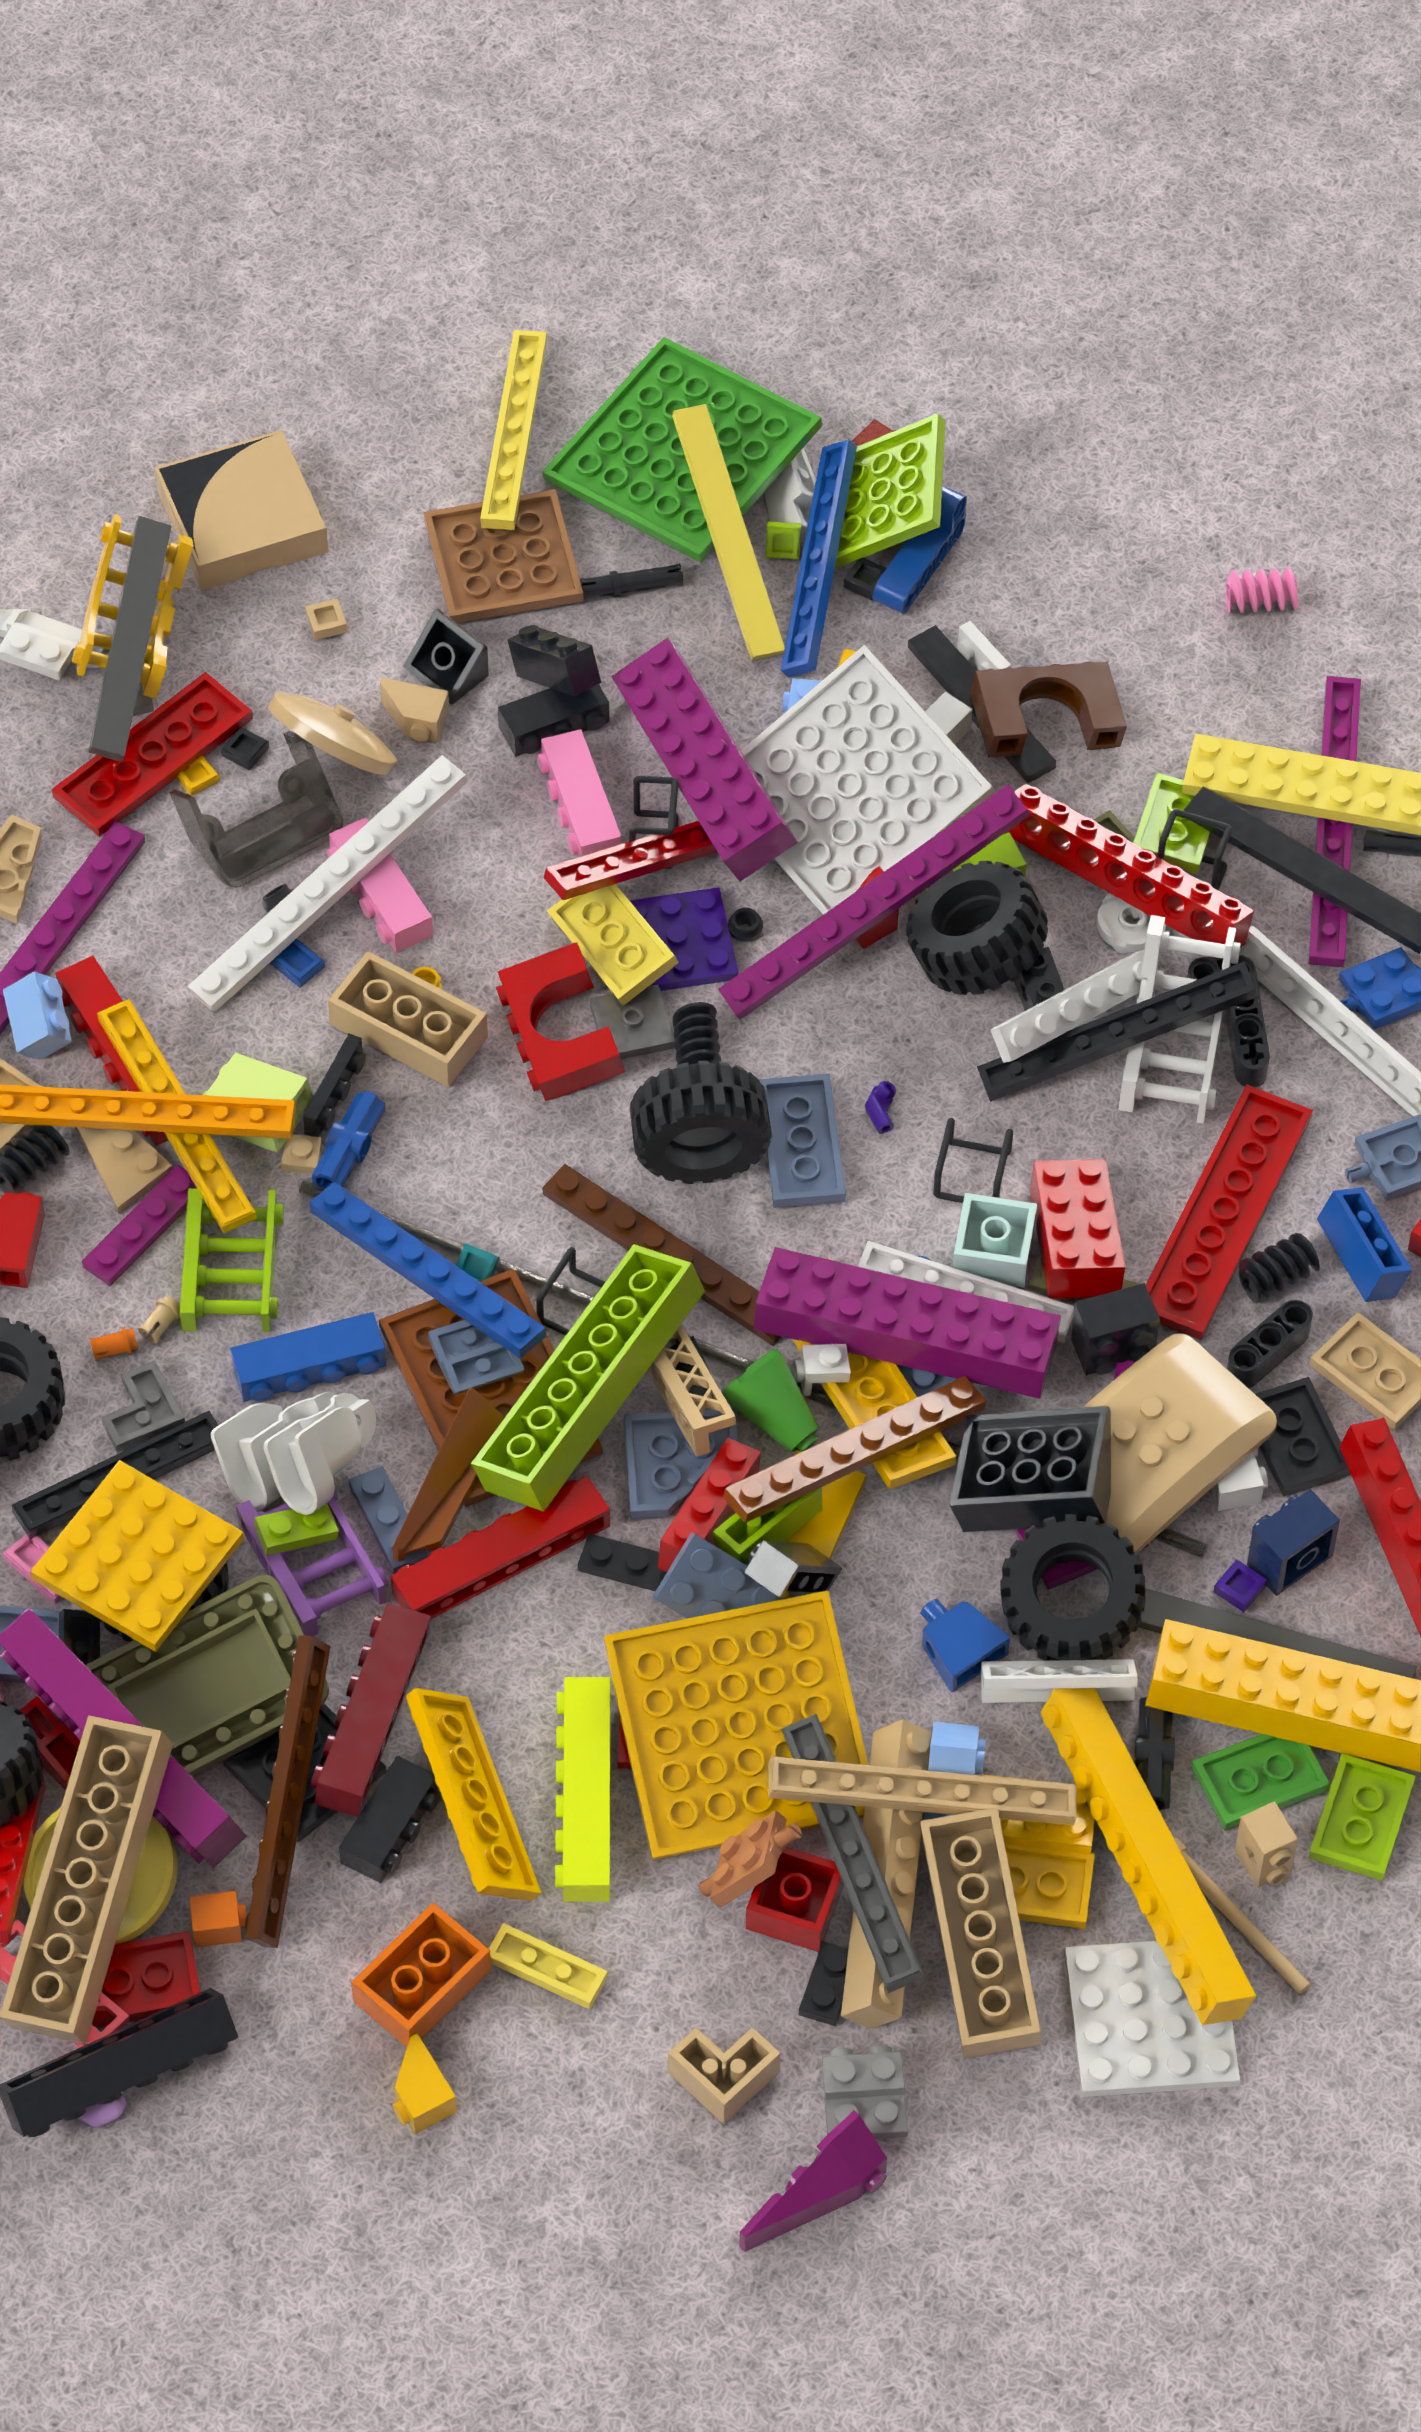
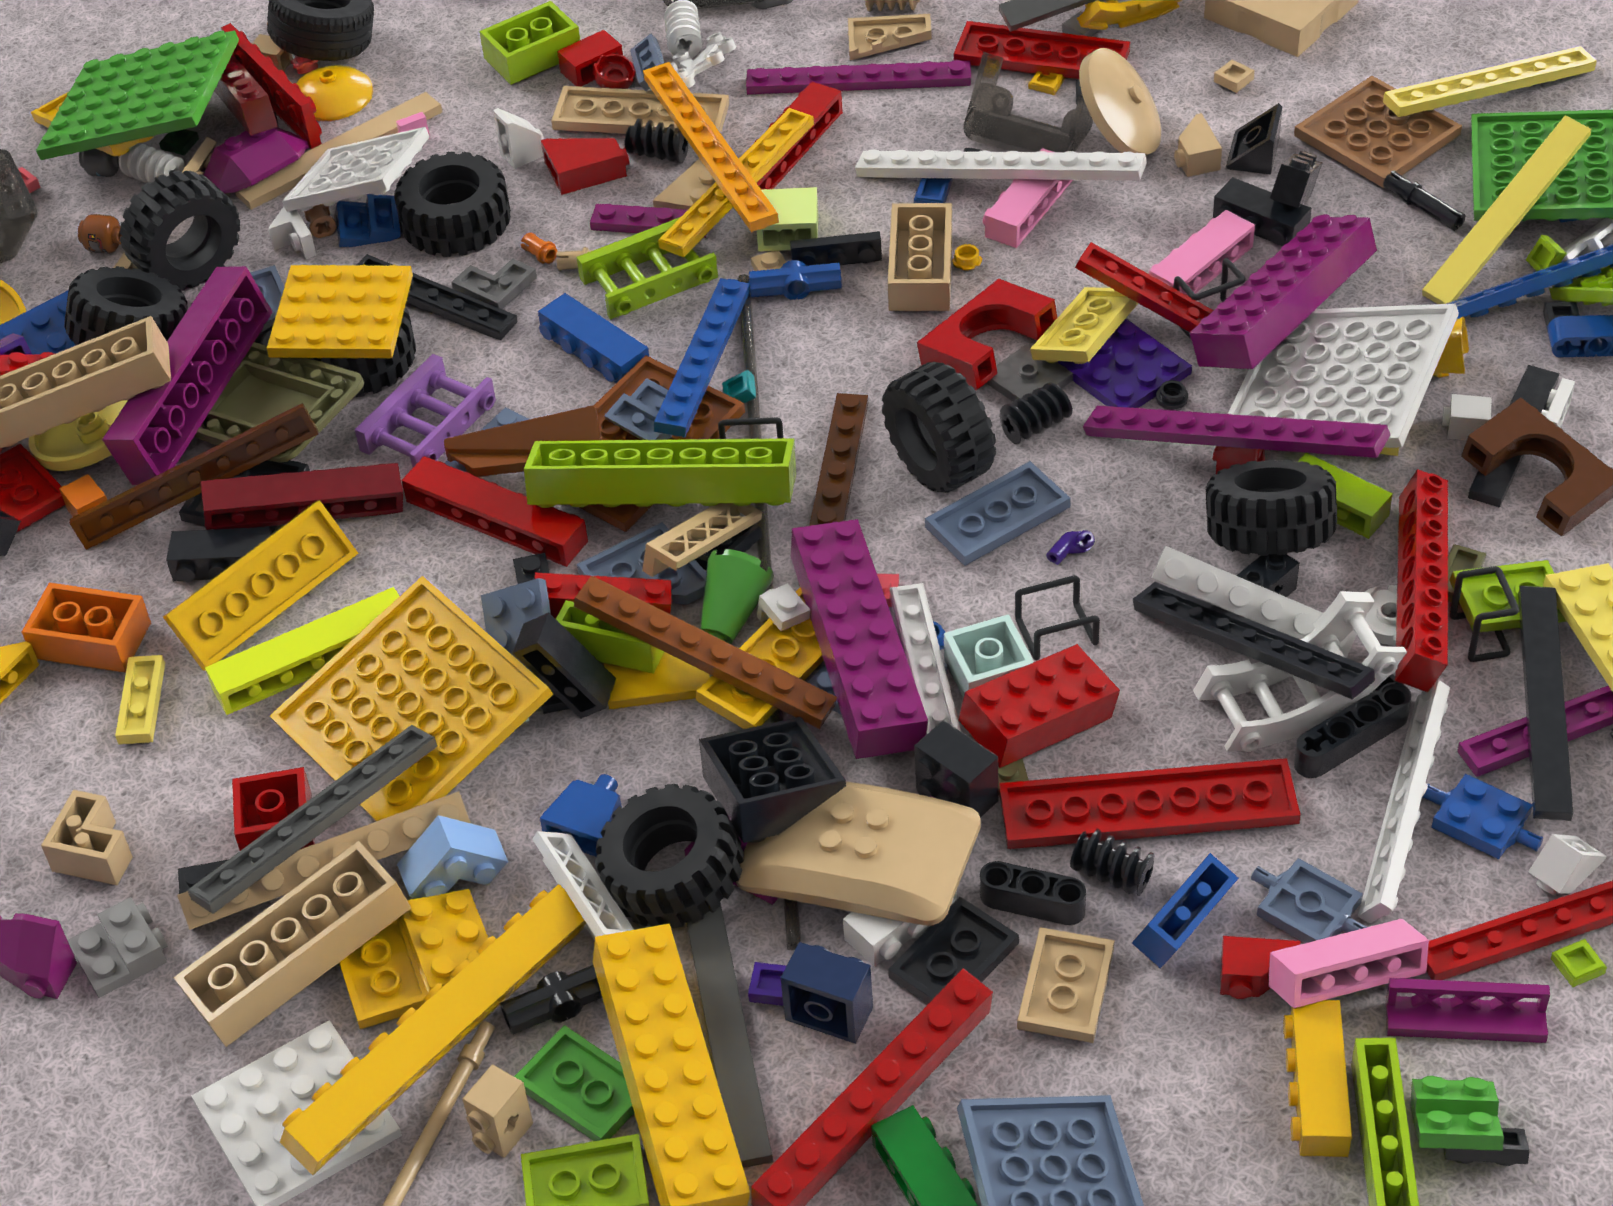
camera: 65 degrees right, 10 degrees down
(37, 1015) = (772, 90): light blue brick -> none
(292, 1450) = (499, 352): white piece -> none
(292, 1530) = (431, 389): lime plate -> none
(749, 1858) = (270, 760): nougat plate -> none
(920, 1790) = (396, 836): tan tile -> none

